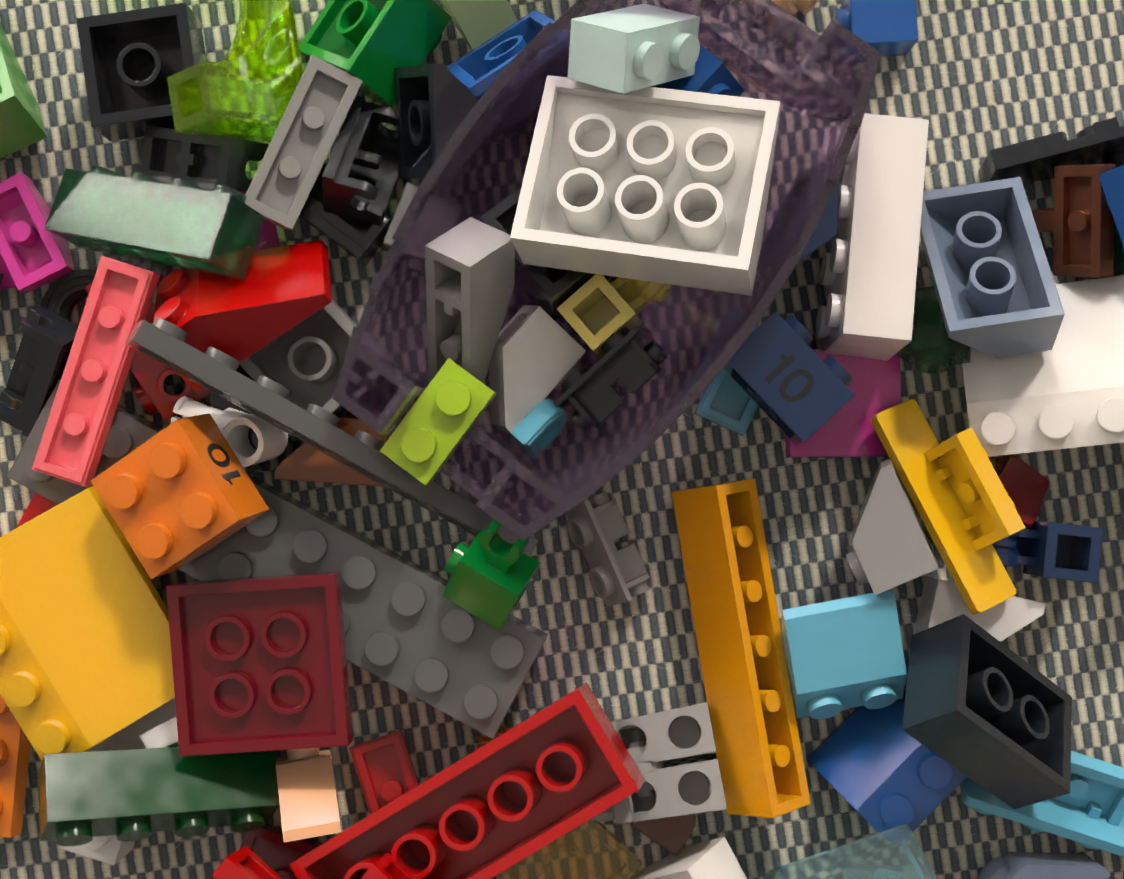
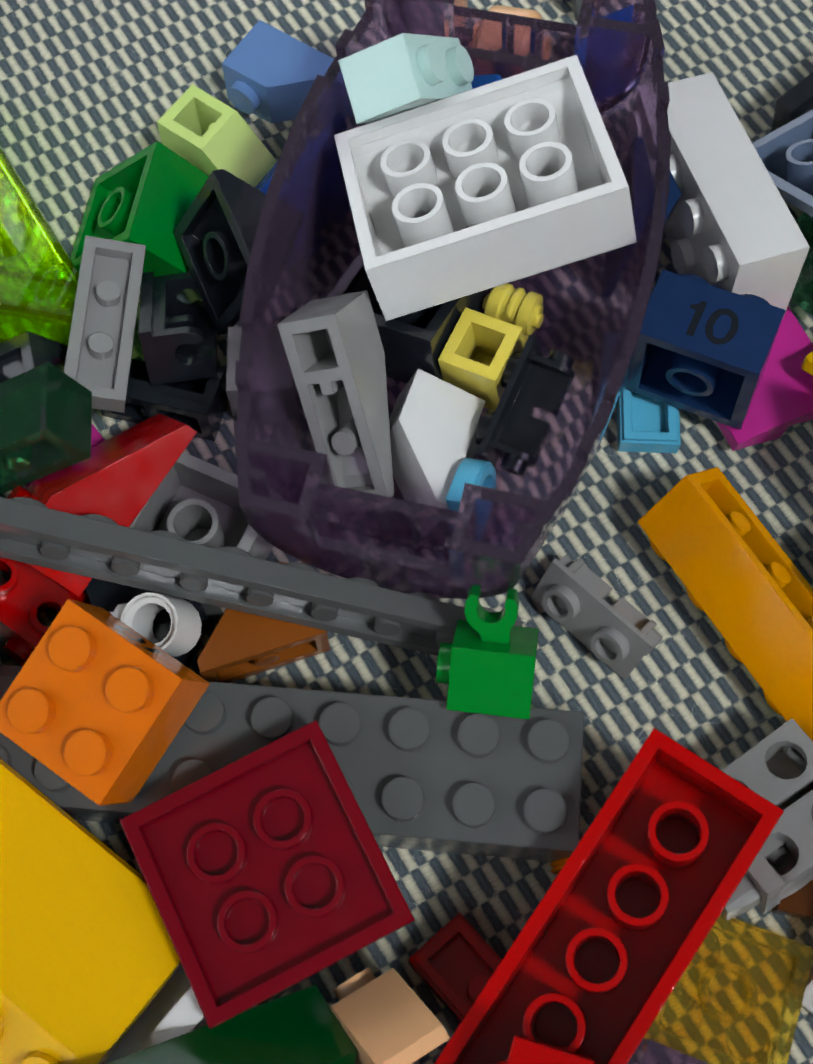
camera: 20 degrees left, 20 degrees down
(438, 422) = (364, 508): lime plate -> none

